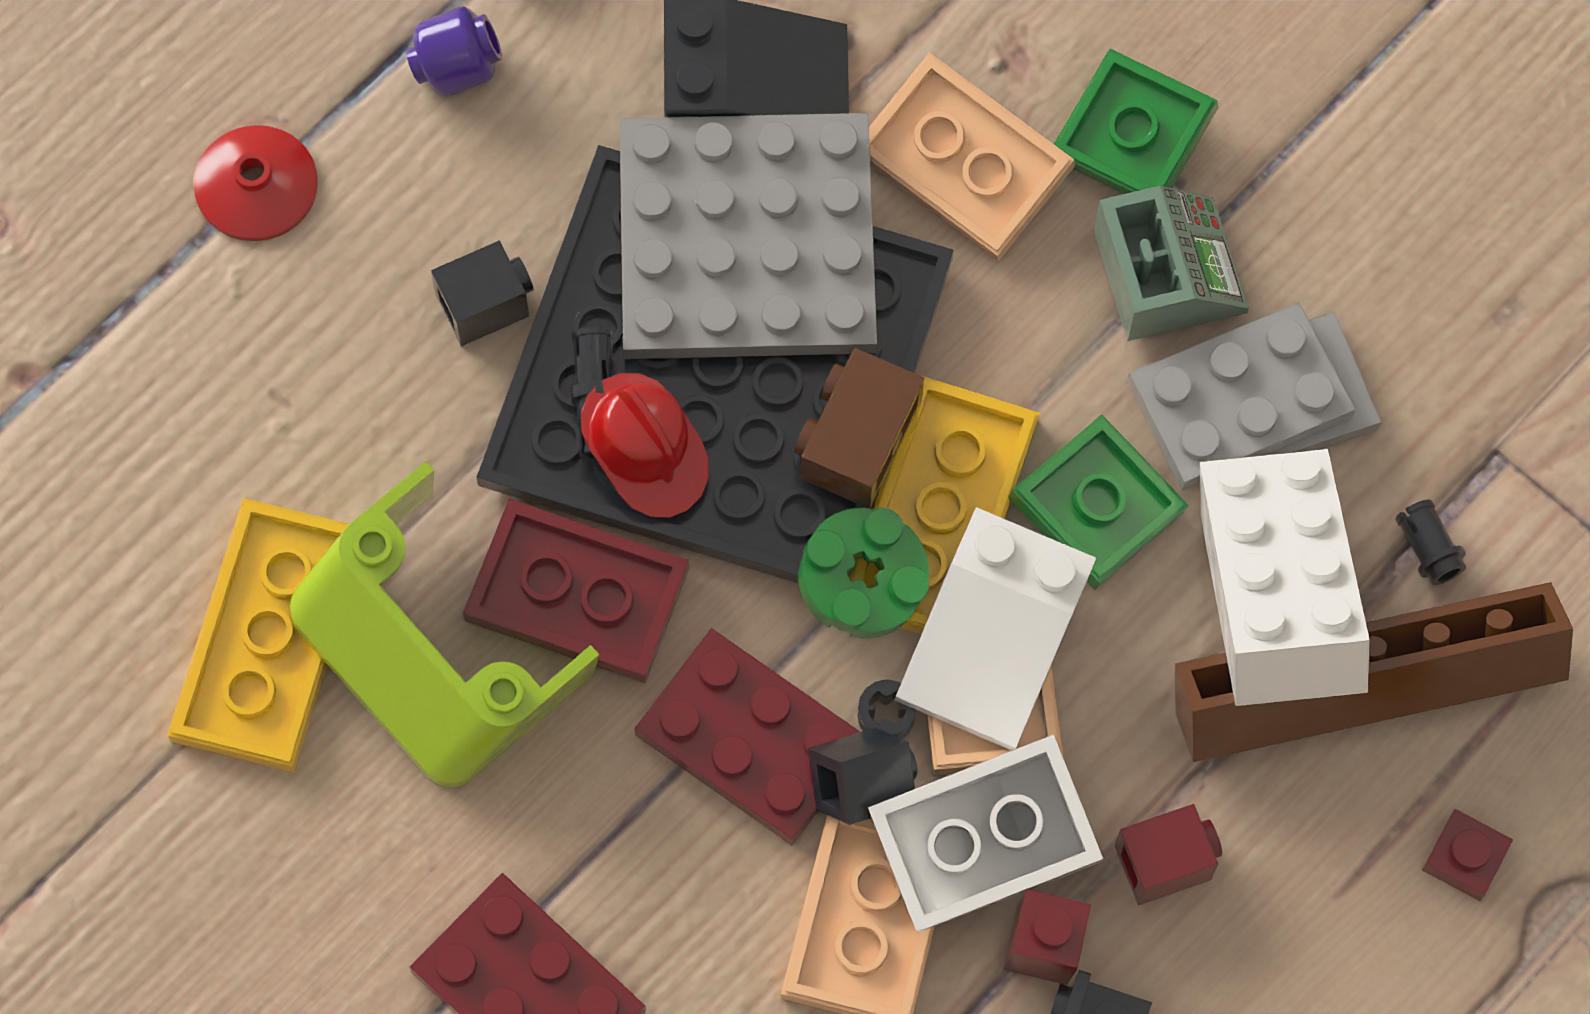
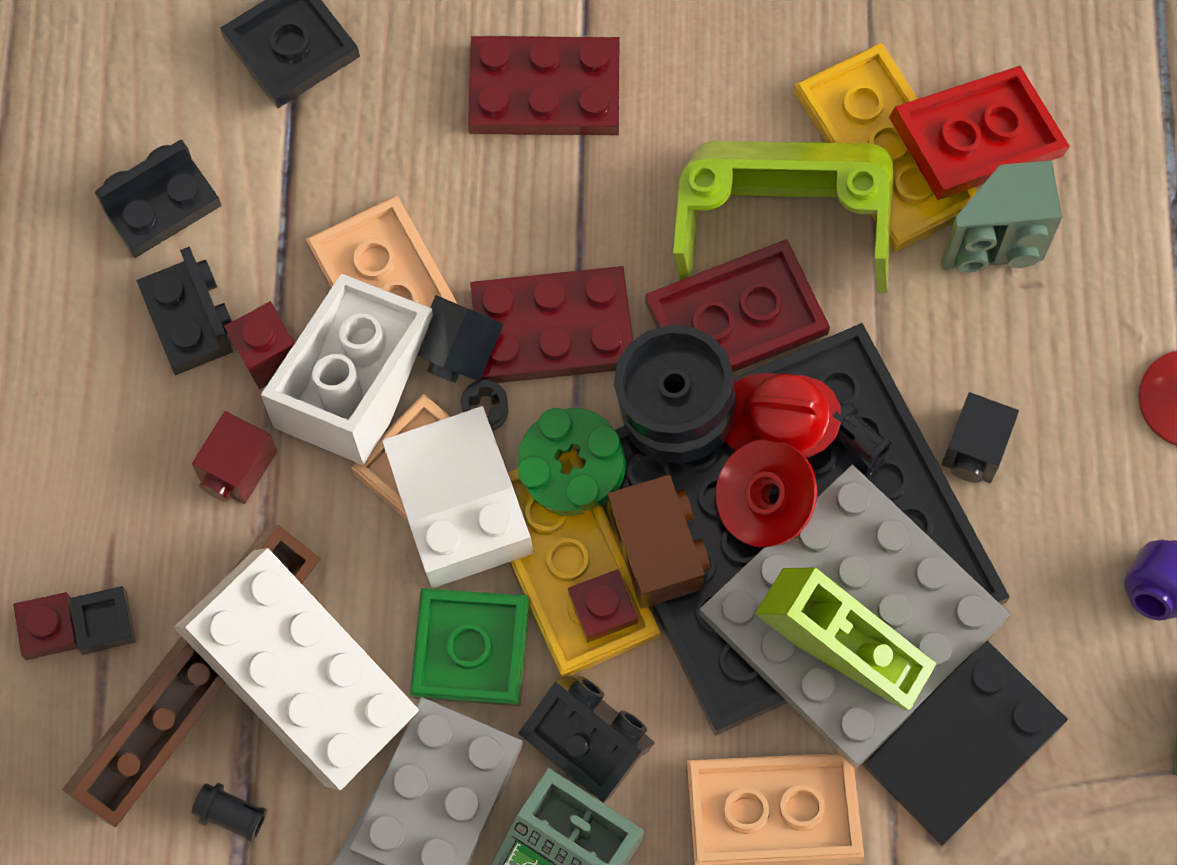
camera: 140 degrees right, 0 degrees up
(182, 554) = (974, 128): none -> red plate
(256, 443) = (1006, 220): none -> sand green slope
(715, 565) = (676, 393): none -> black wheel
(748, 378) = (745, 488): none -> red dish
(789, 198) = (845, 635): none -> lime slope
(952, 430) = (602, 605): none -> dark red plate
(1063, 342) = (586, 735): none -> black bracket
(1412, 807) = (102, 620): none -> black plate

